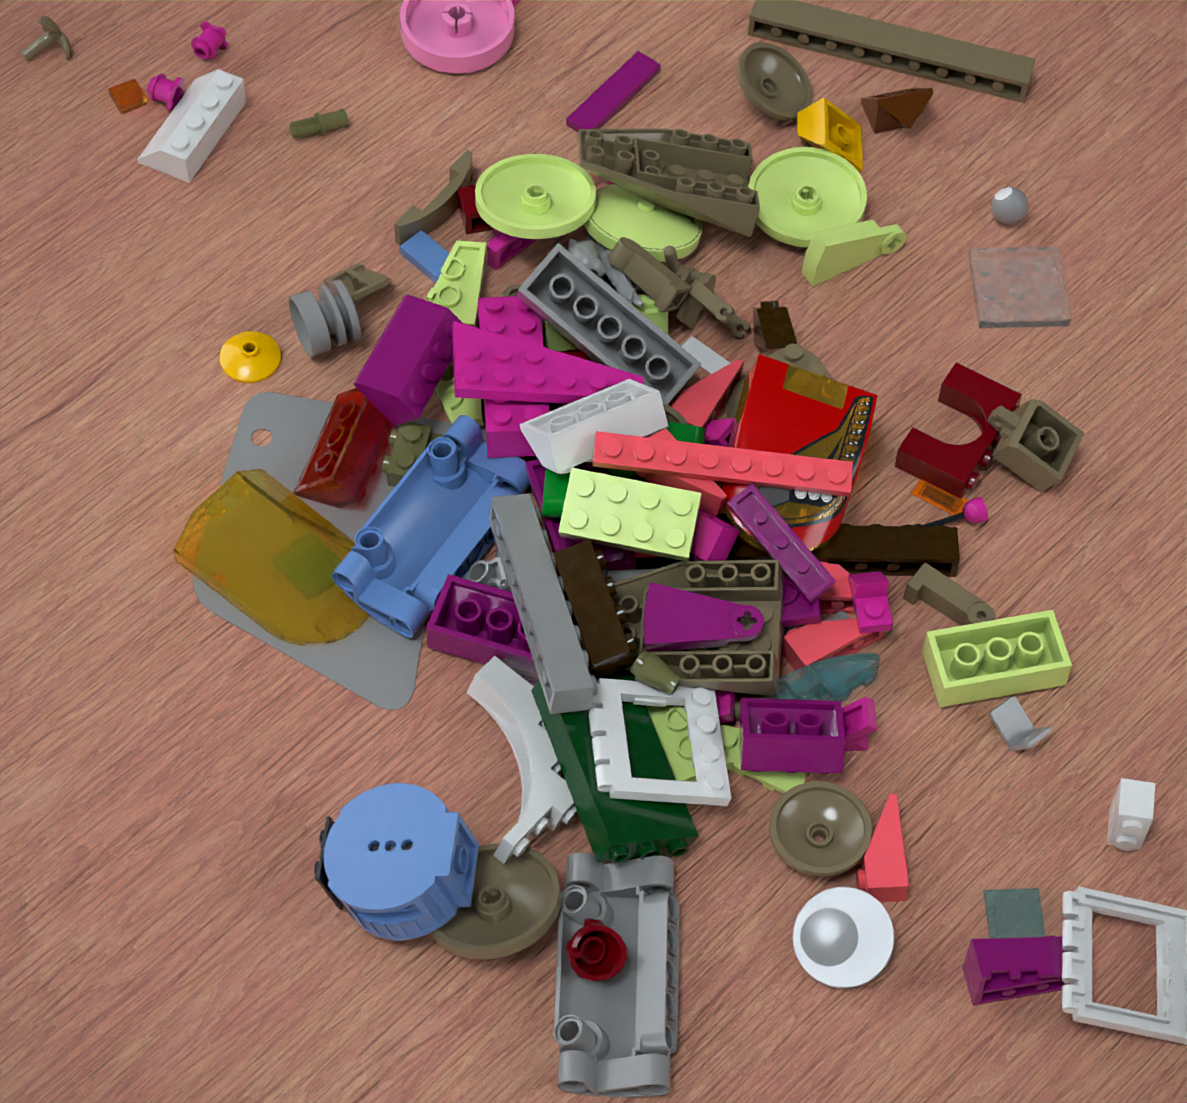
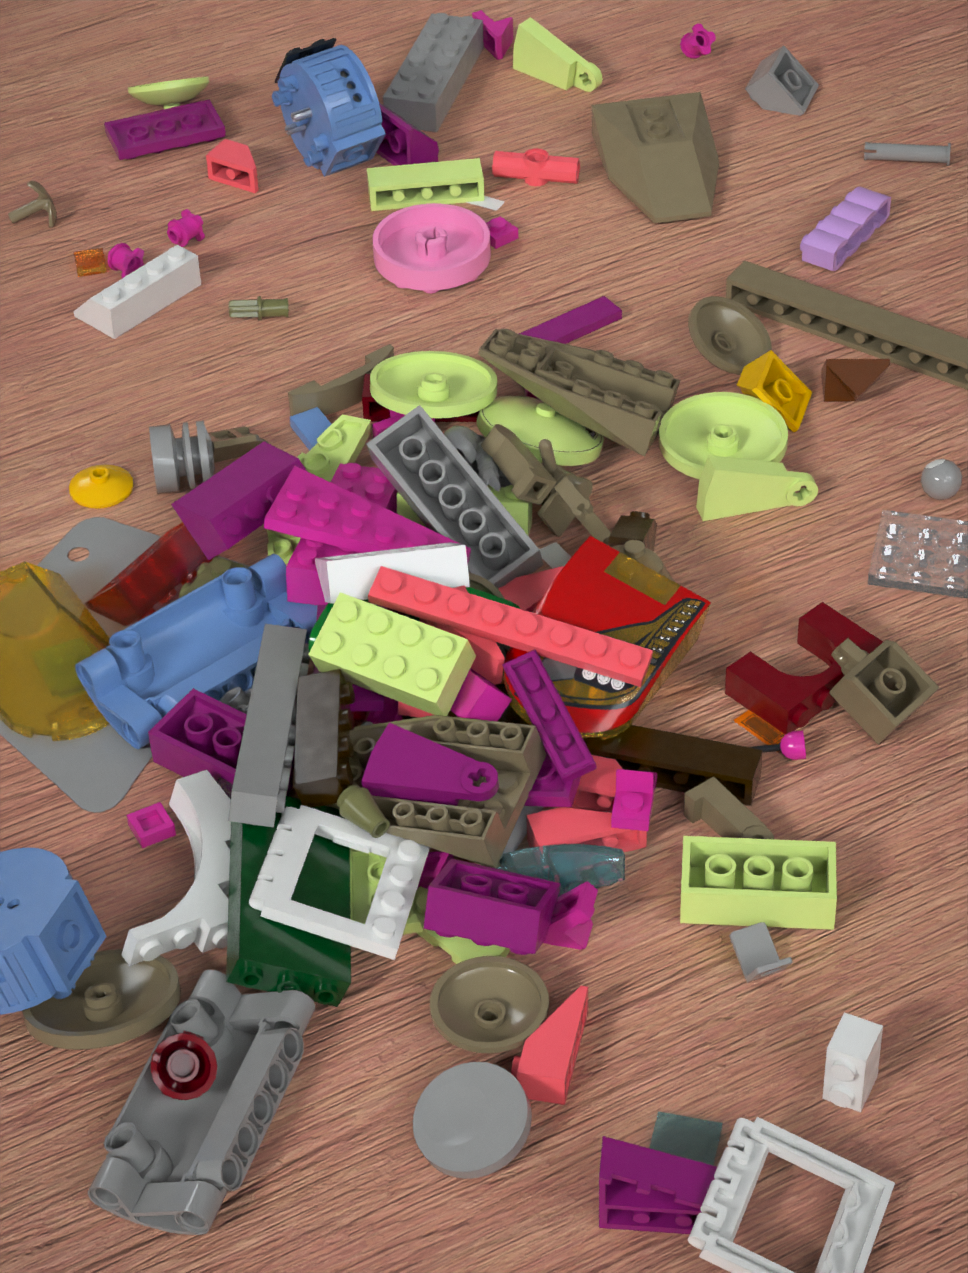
camera: 20 degrees right, 15 degrees down
(455, 714) = (151, 825): none -> dark pink plate

